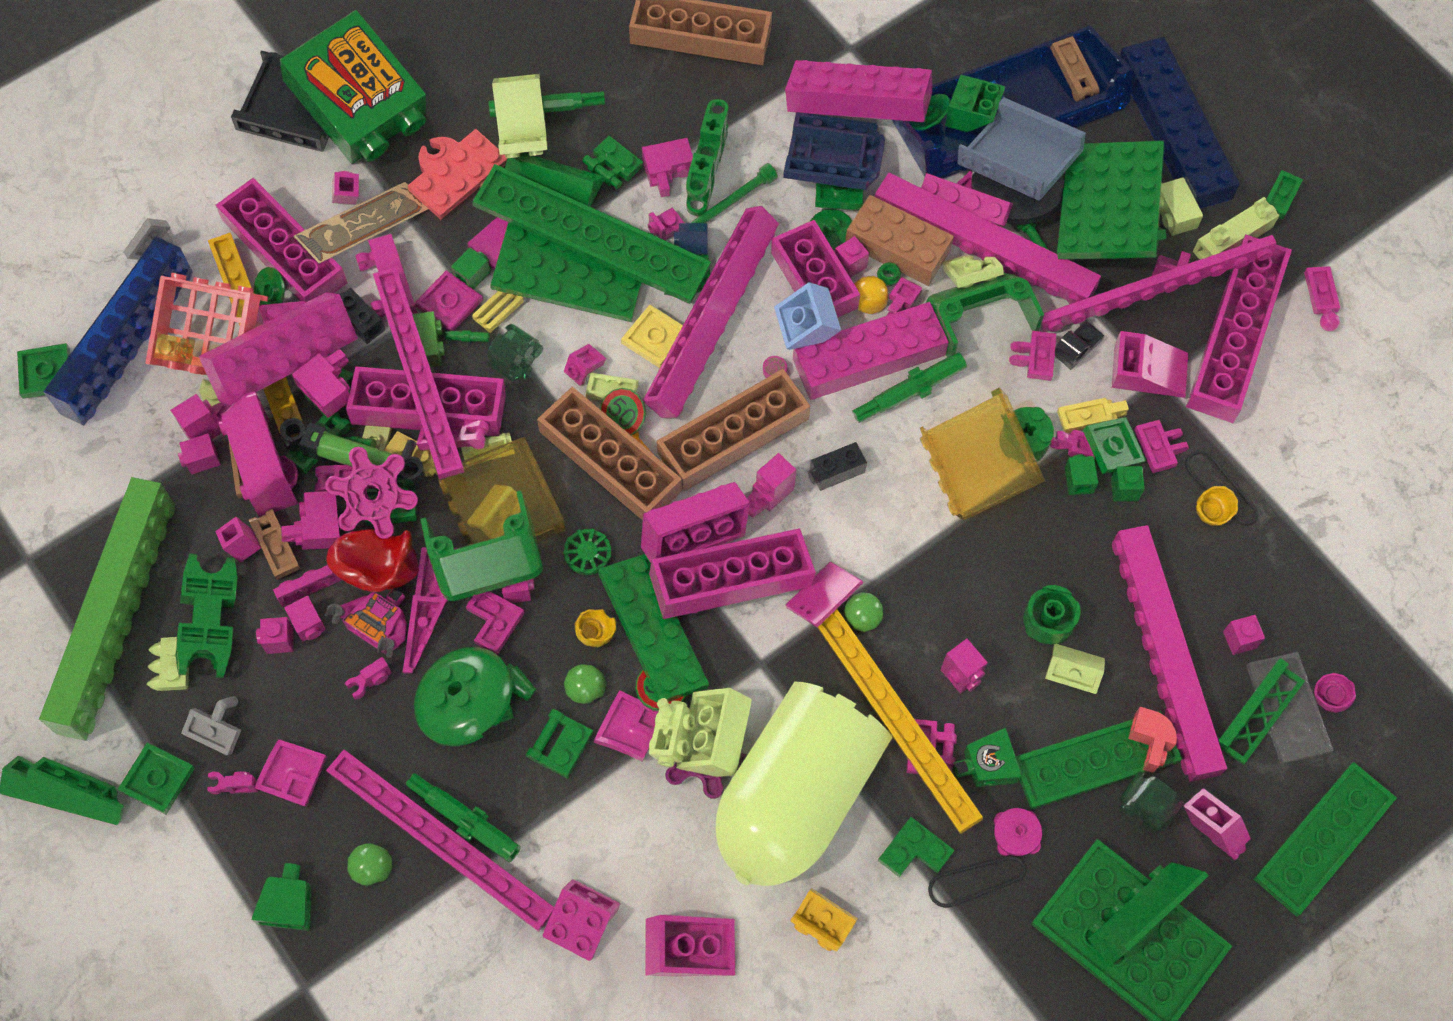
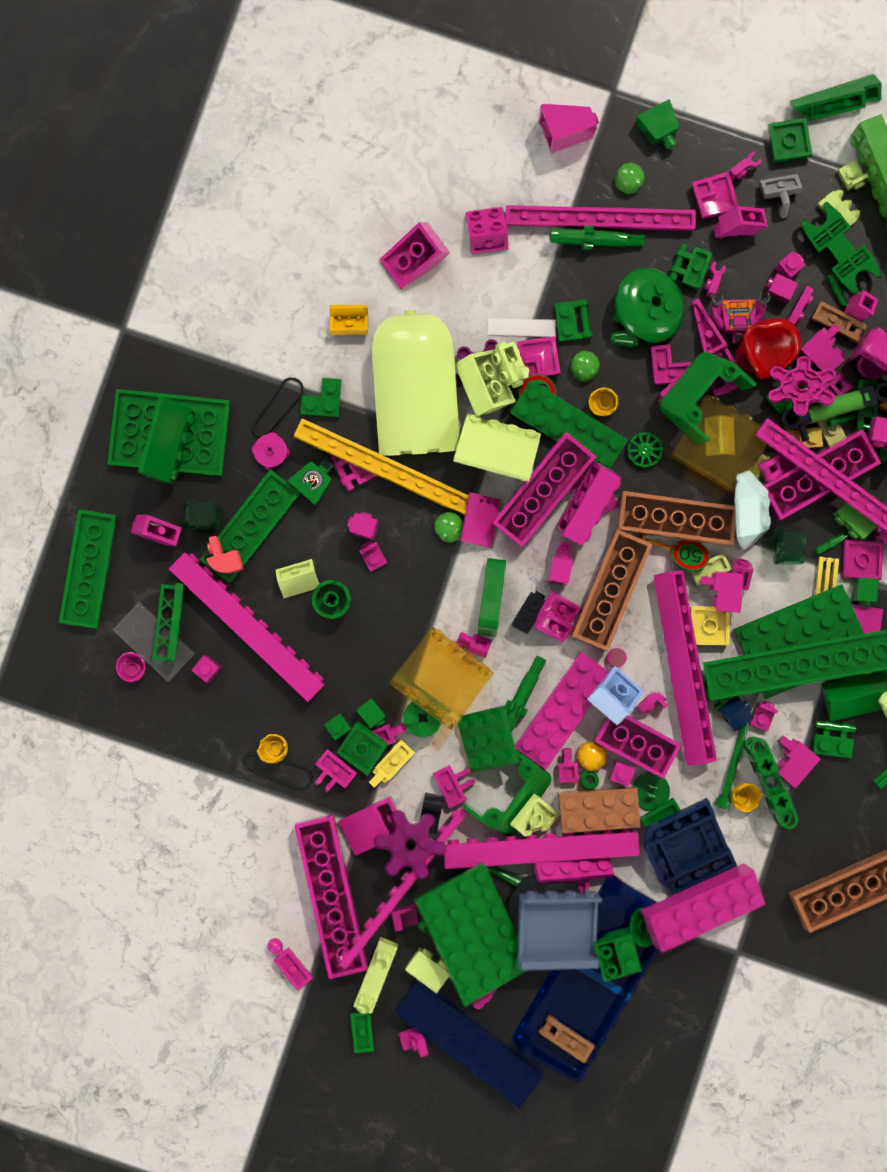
camera: 150 degrees right, 20 degrees up
(124, 689) = (852, 176): none -> yellowish green bracket
(246, 580) = (837, 290): none -> green piece
(290, 716) = (741, 221): none -> dark pink hinge
(379, 705) = (696, 268): none -> green plate
(396, 971) = (566, 125): none -> dark pink slope
(523, 407) = (751, 509): none -> light aqua wedge
(611, 347) = (729, 590): none -> dark pink hinge
(623, 778) = (521, 327): none -> white sticker
(740, 163) = (746, 797): none -> yellow hair
(753, 647) = (497, 447): none -> yellowish green slope
(767, 303) = (647, 703): none -> dark pink bracket
(811, 442) = (557, 616): none -> dark pink slope
(866, 505) = (491, 597): none -> green beam
(916, 471) = (477, 644): none -> dark pink plate
(971, 364) = (487, 739): none -> green plate
(973, 631) = (372, 555): none -> dark pink bracket
(1125, 330) = (396, 844): none -> magenta plate
(1231, 150) = (413, 1039): none -> dark pink bracket

